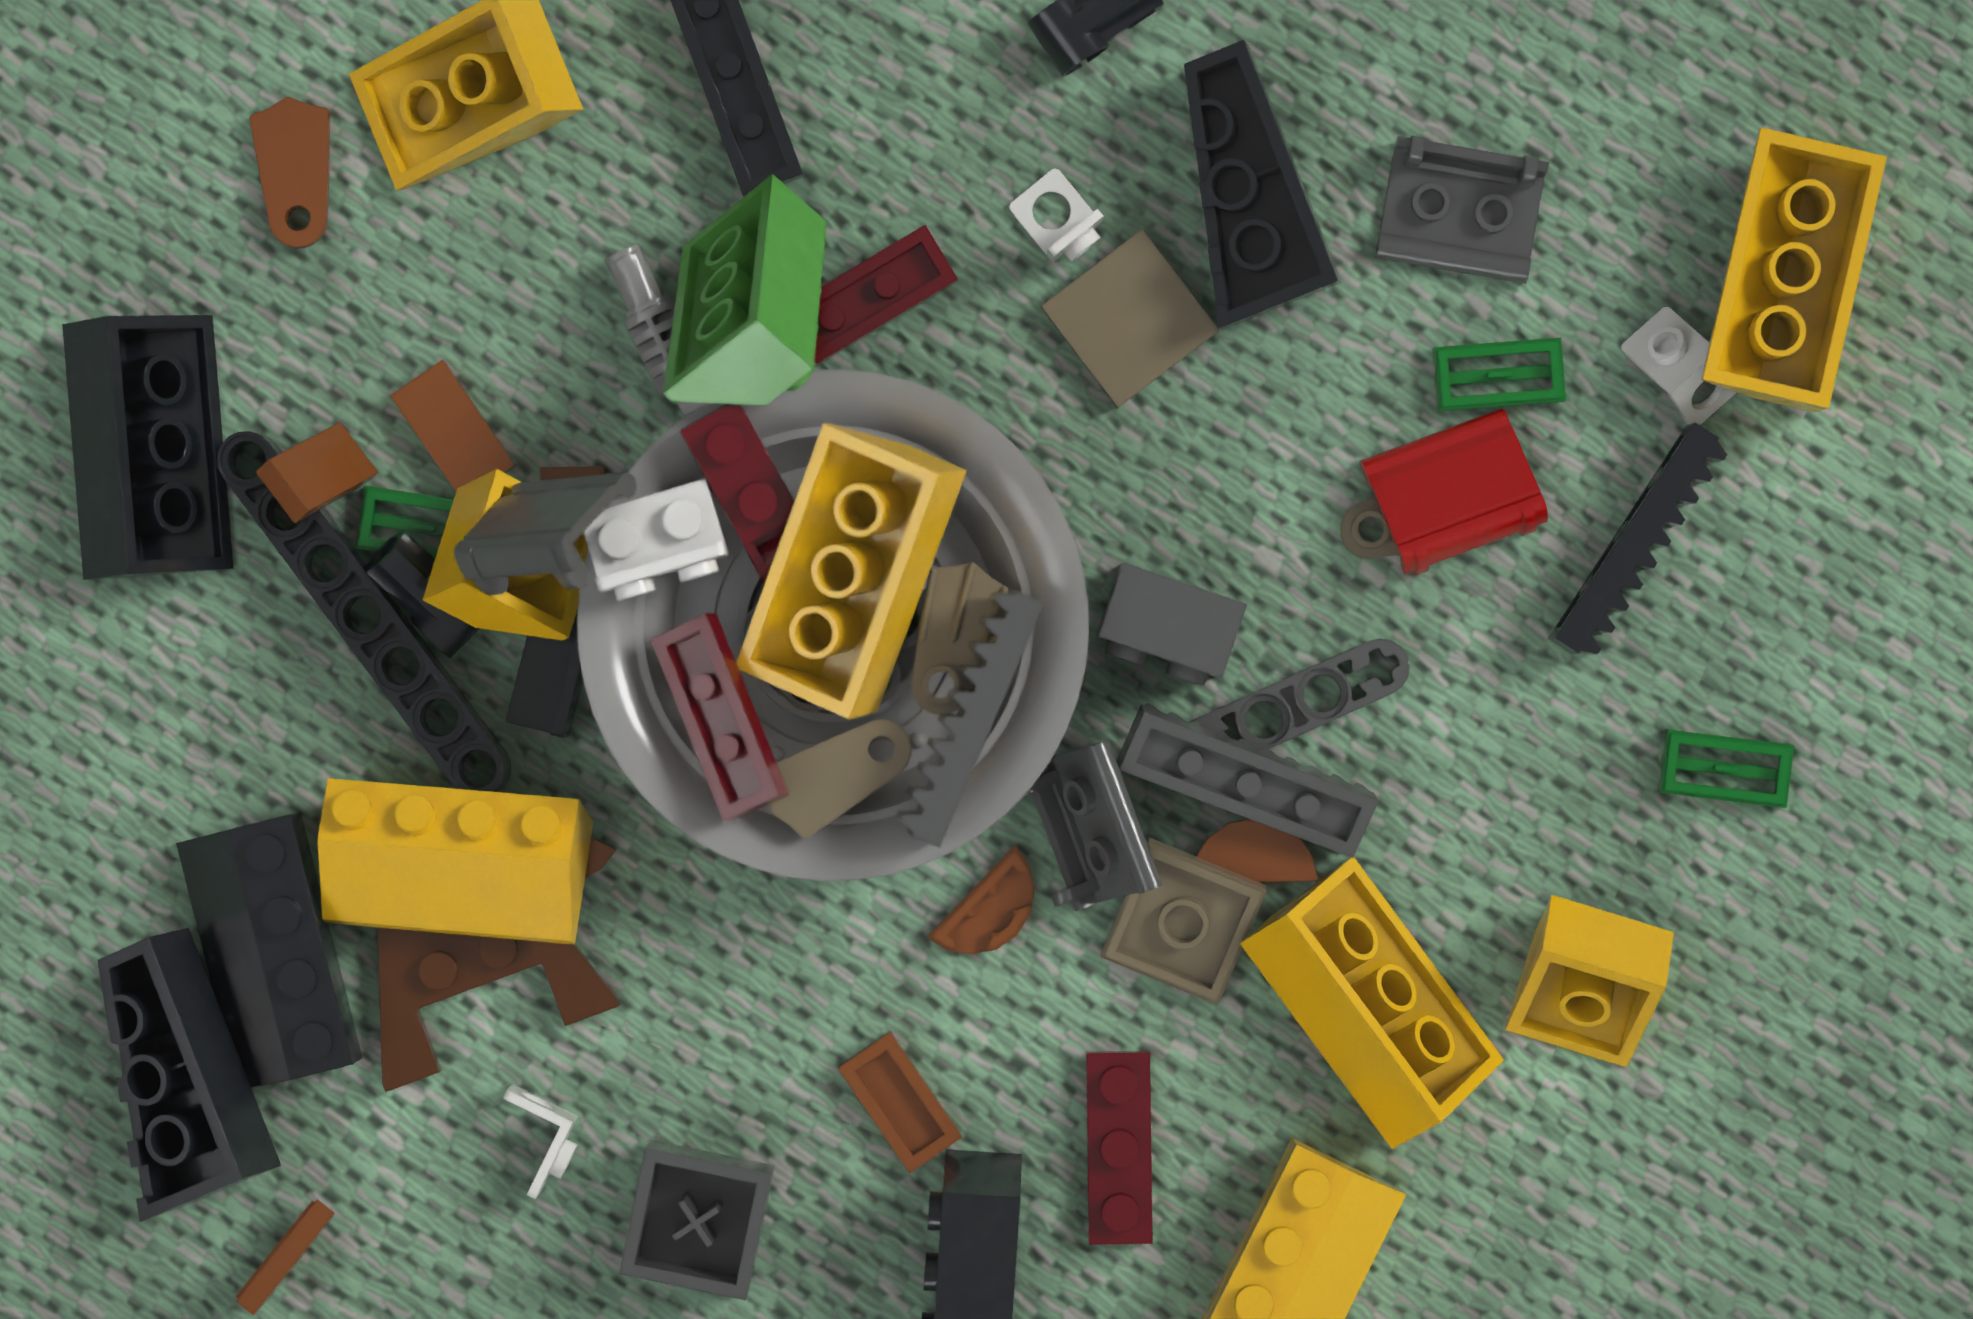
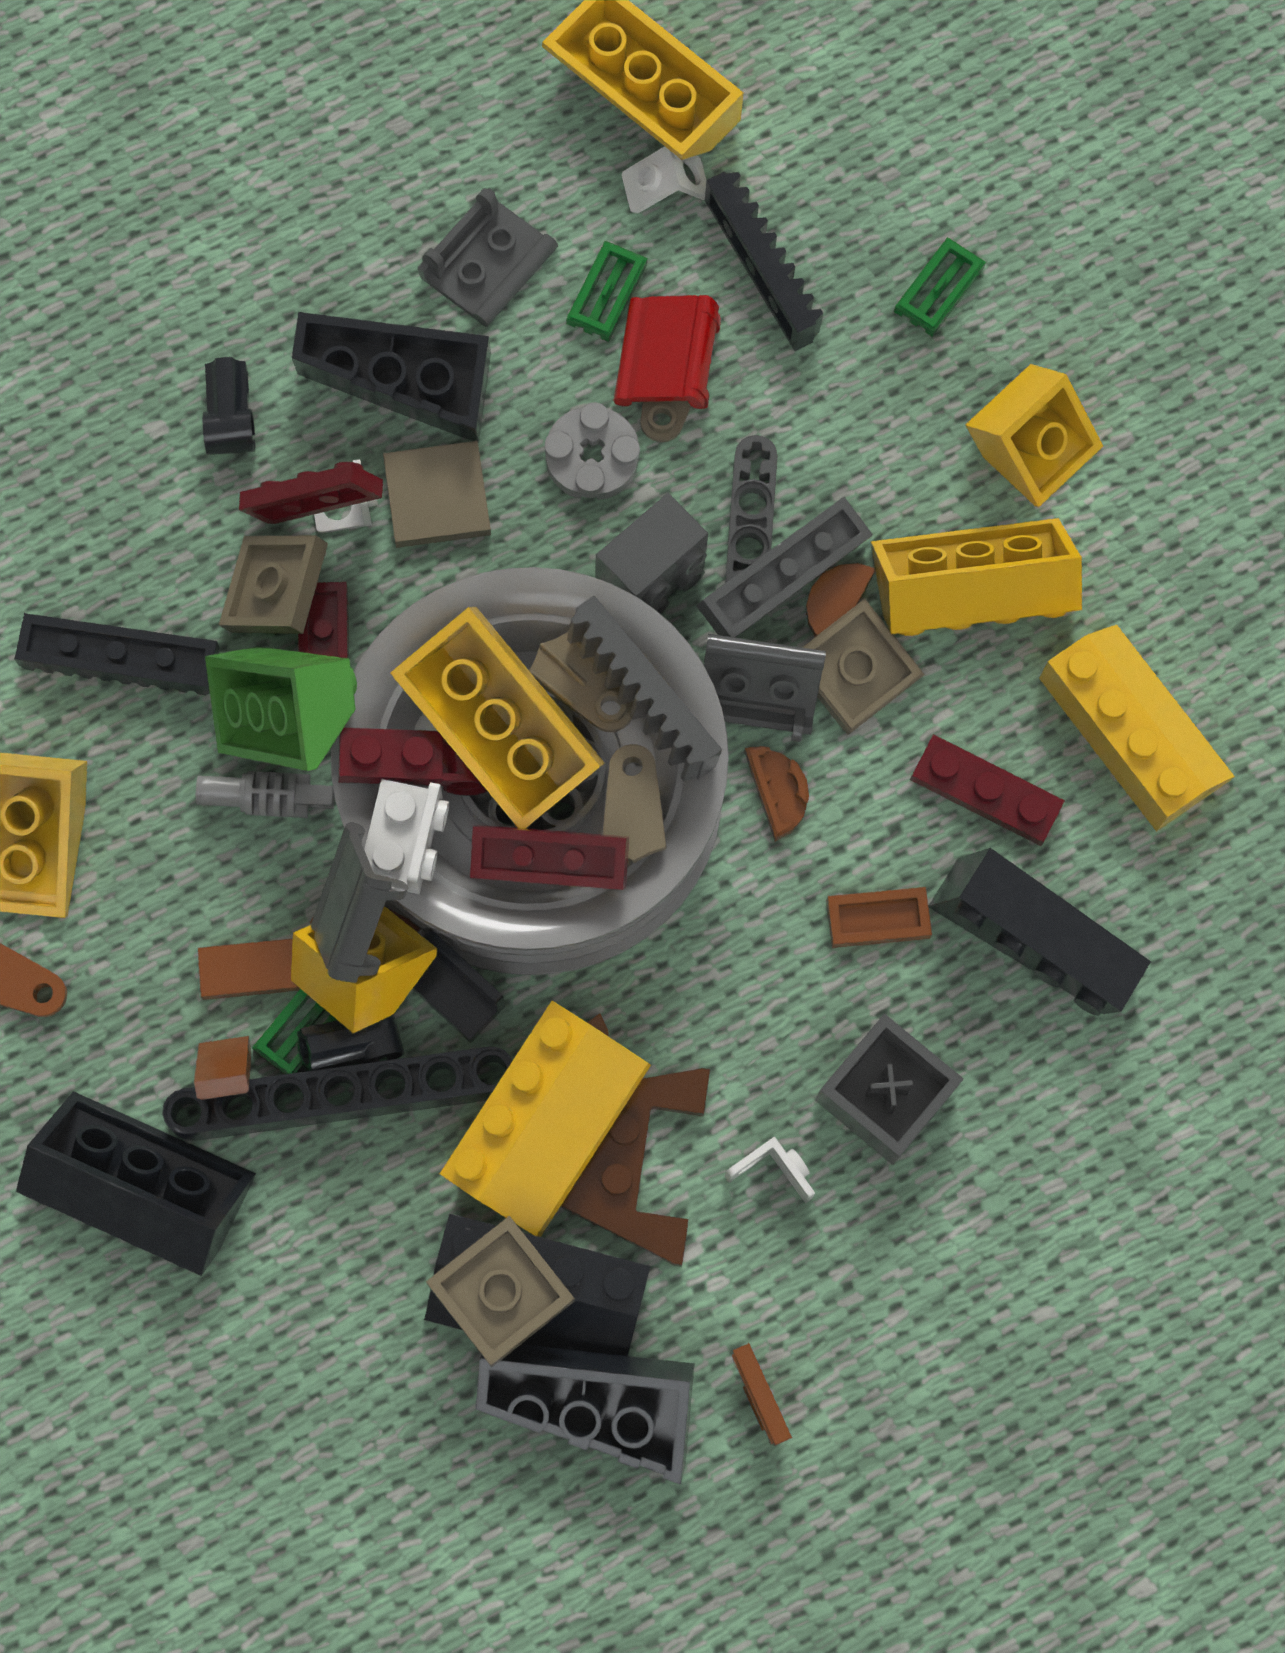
camera: 65 degrees left, 15 degrees down
(226, 922) = (500, 1291): none -> dark tan plate
(904, 199) = (273, 584): none -> dark tan plate
(1032, 182) = (311, 493): none -> dark red plate
(1265, 438) = (592, 426): none -> light grey plate

